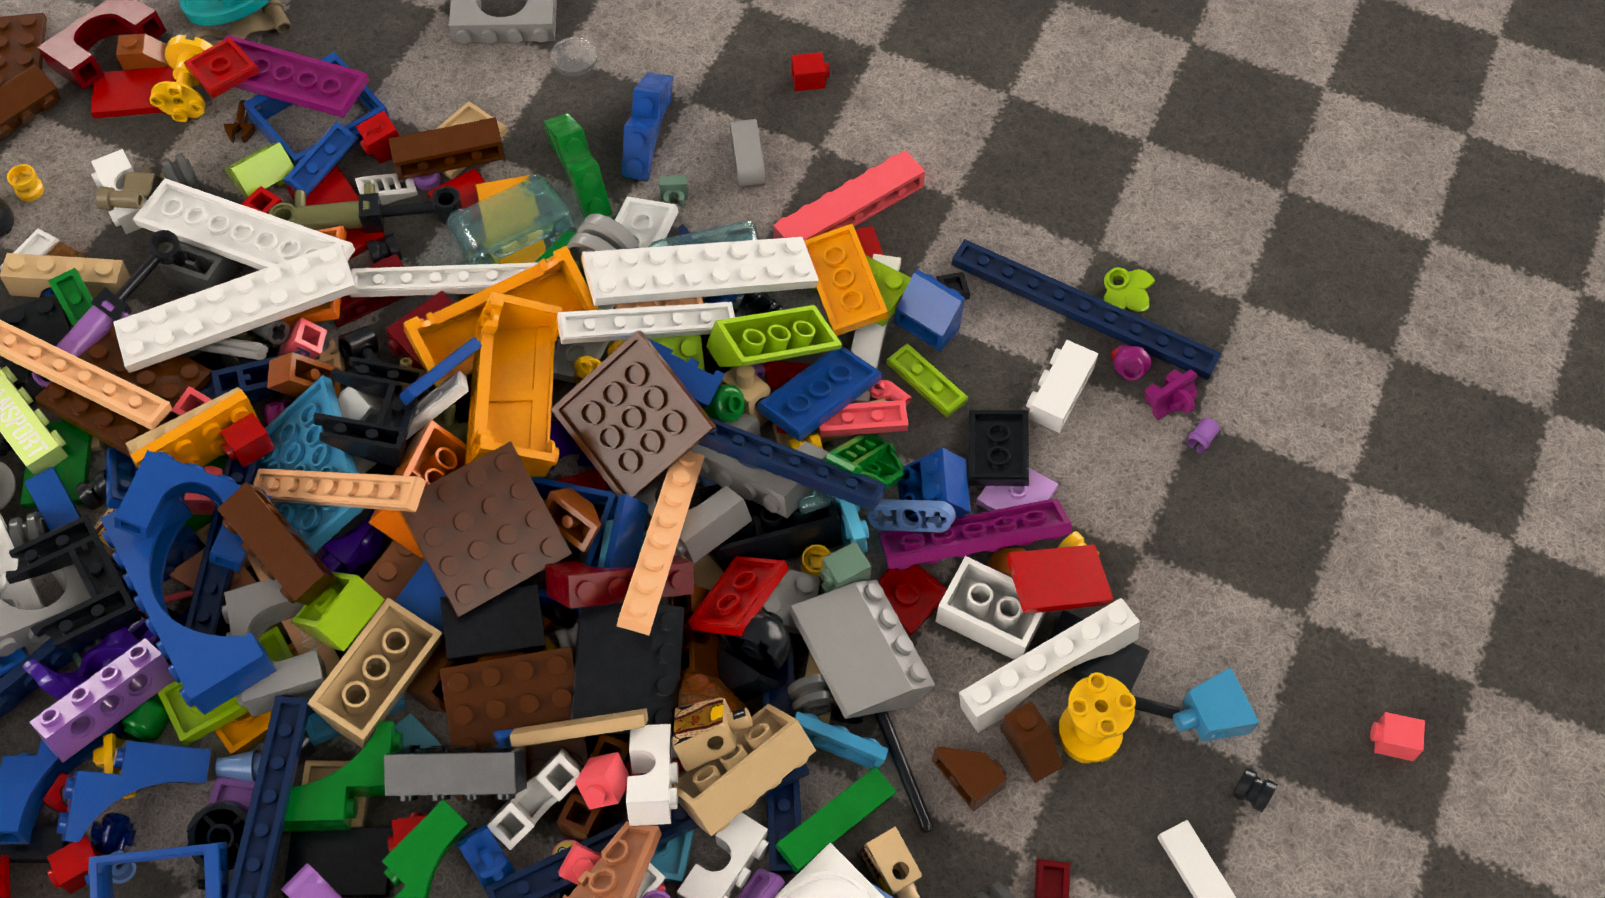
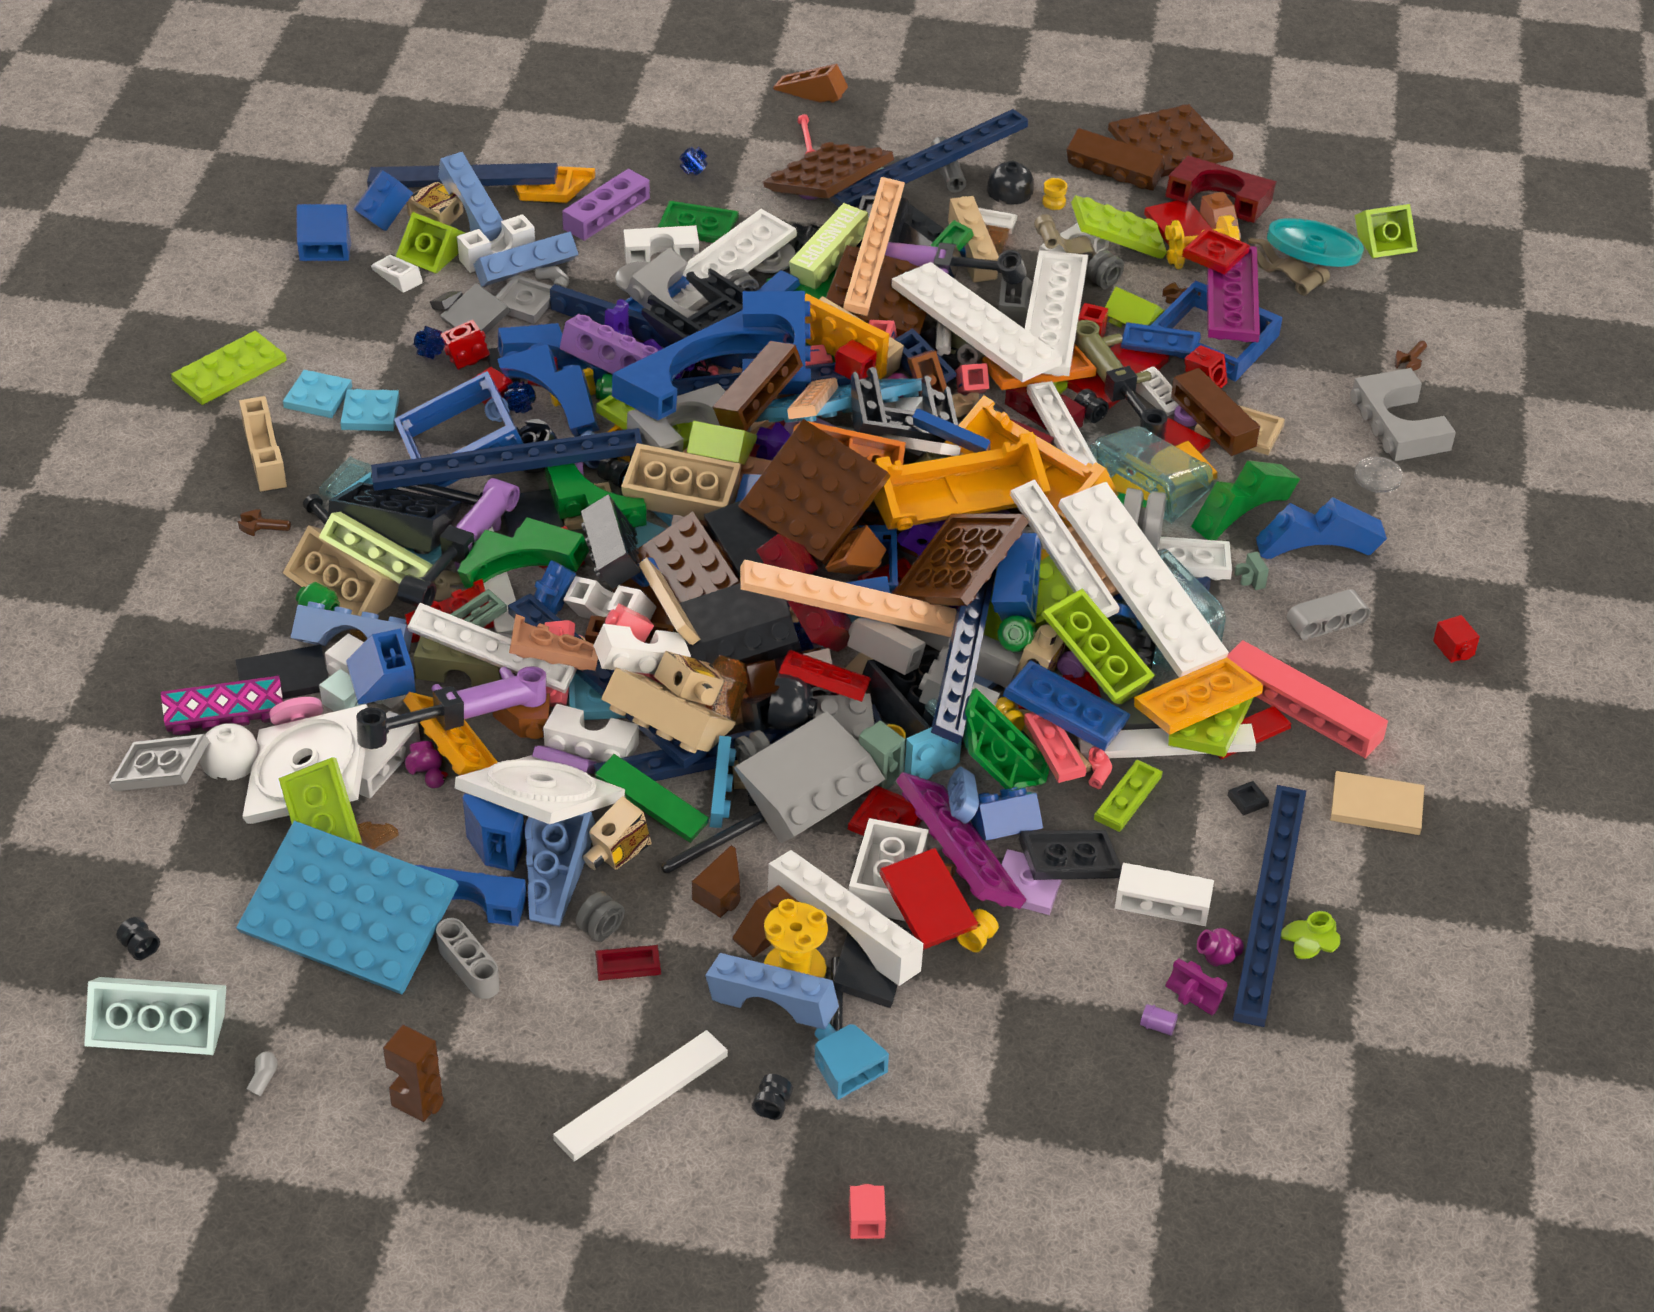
camera: 75 degrees right, 15 degrees down
(123, 140) = (1118, 226): none -> lime plate
(930, 310) = (1199, 773): slope -> none
(981, 195) = (1377, 803): none -> tan tile
(1137, 755) = (805, 996): none -> medium blue arch

